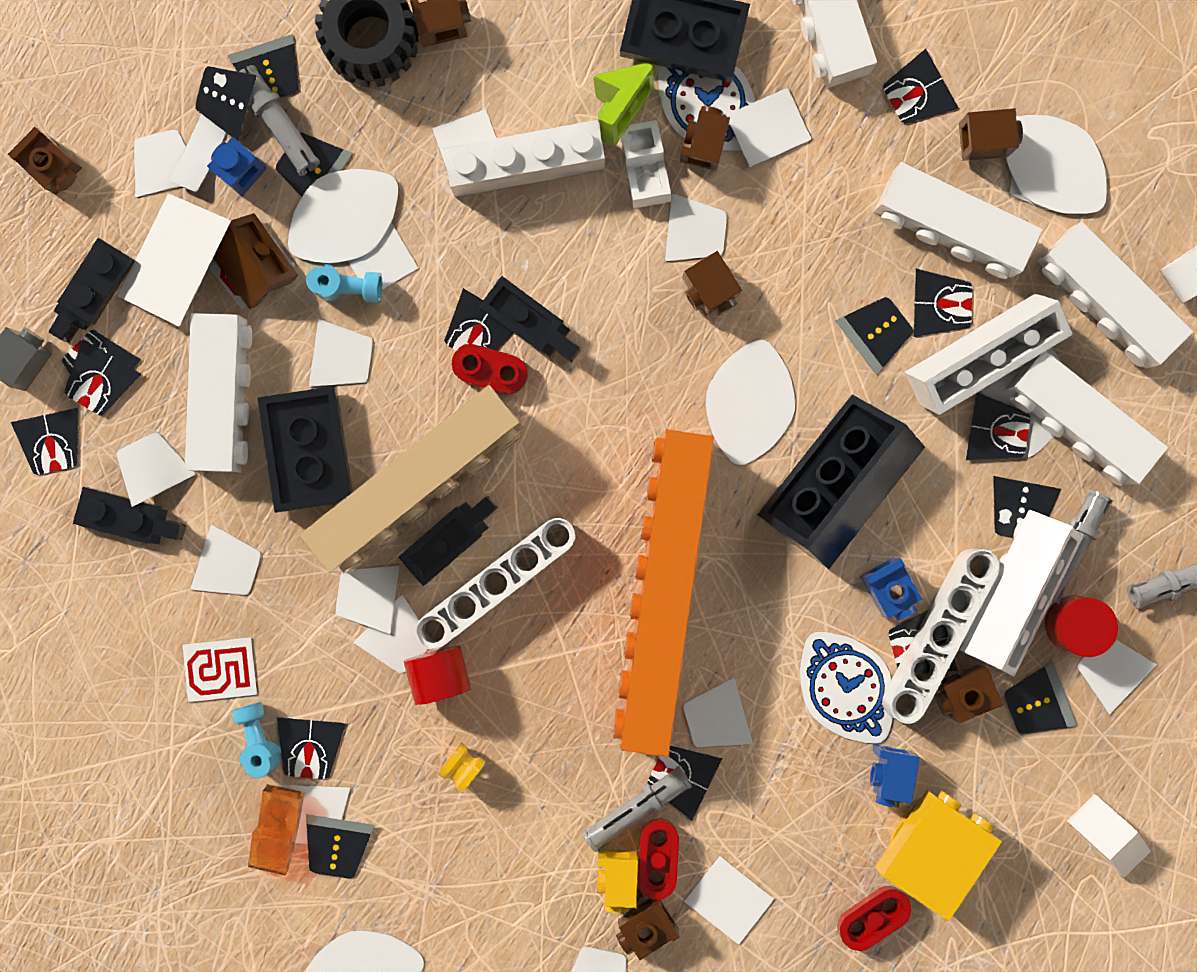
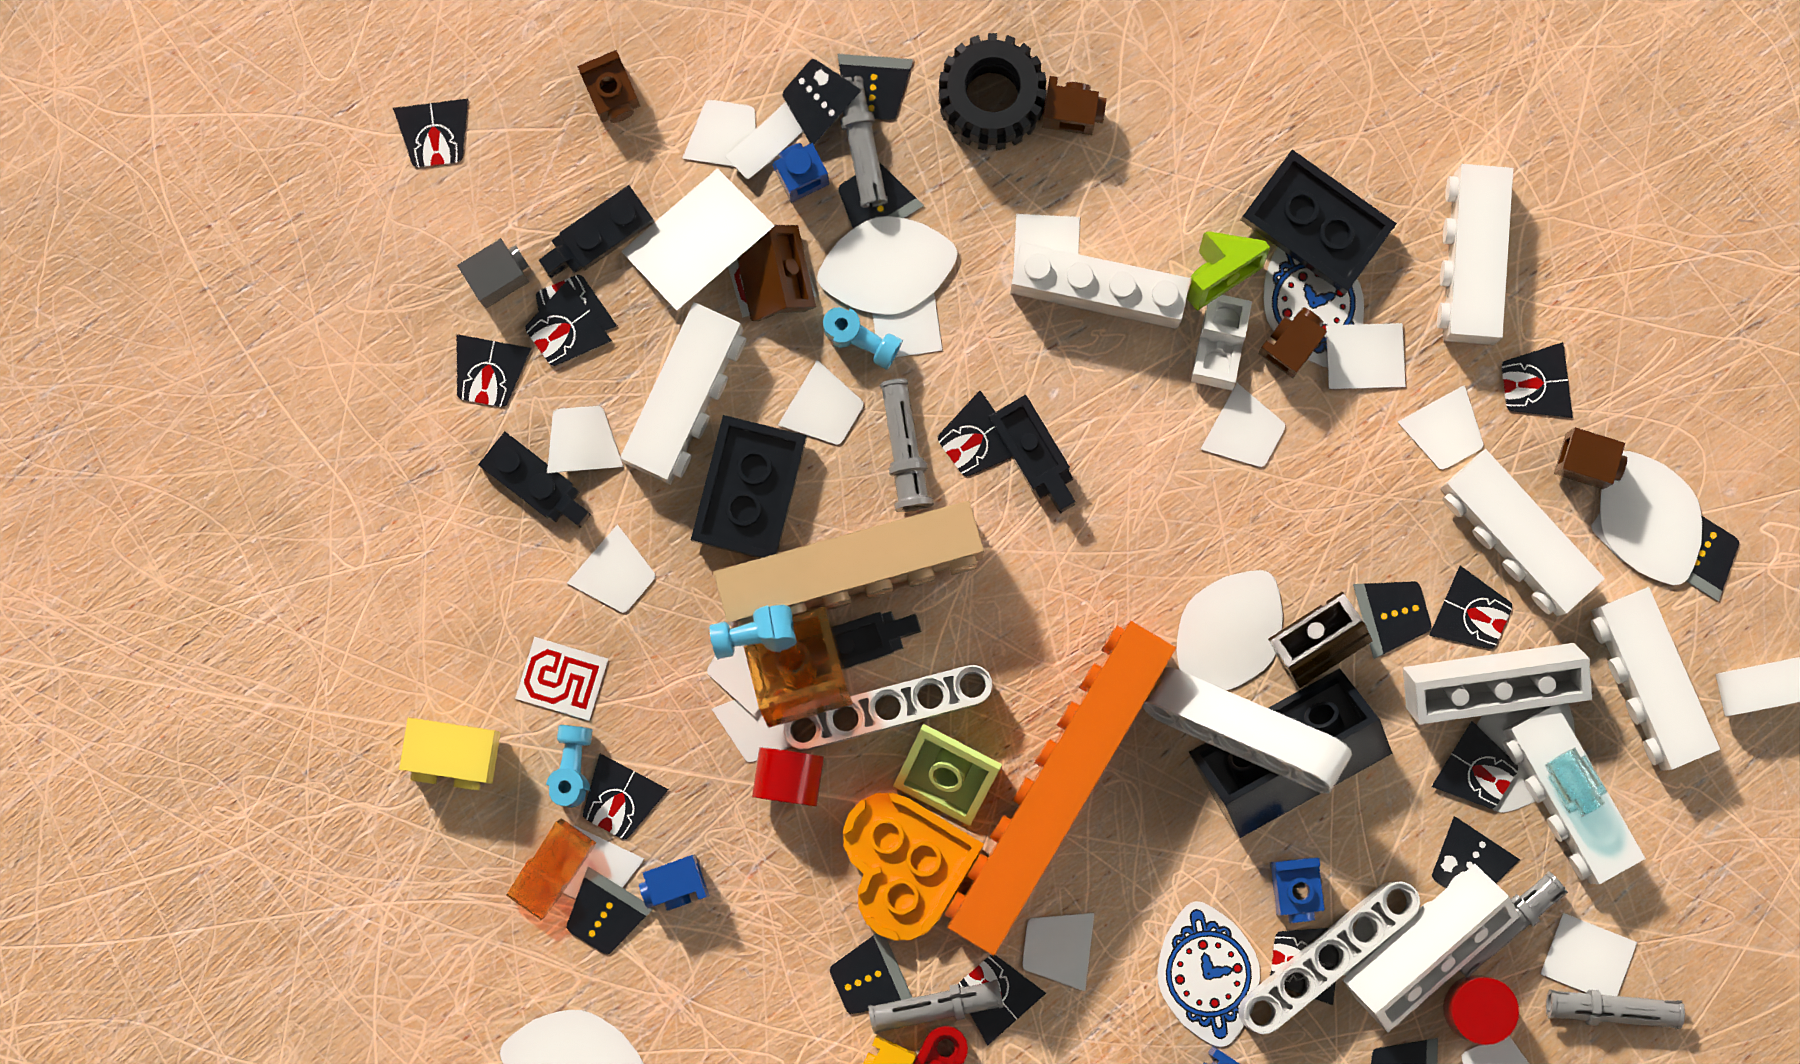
camera: 25 degrees right, 5 degrees down
(148, 772) = (449, 751): none -> light yellow brick
(365, 562) = (770, 627): none -> medium azure leg
(381, 800) = (673, 884): none -> blue brick
(403, 584) = (803, 677): none -> clear orange brick
(429, 376) = (907, 466): none -> light grey pin
(461, 767) = (771, 884): yellow wheel -> none
(489, 368) = (973, 484): red plate -> none
(565, 701) = (907, 863): none -> light orange plate
(567, 616) = (947, 775): none -> yellowish green slope
(573, 805) = (869, 976): none -> black sticker
(711, 285) = (1238, 494): reddish brown brick -> none
(802, 479) = (1247, 730): none -> white beam
(829, 377) = (1320, 639): none -> dark brown brick
(858, 160) = (1445, 429): none -> white sticker
(968, 694) = (1332, 1031): reddish brown brick -> none
(1089, 409) = (1575, 782): none -> clear light blue brick
(1120, 177) = (1713, 559): none -> black sticker
(1147, 545) = (1588, 957): none -> white sticker

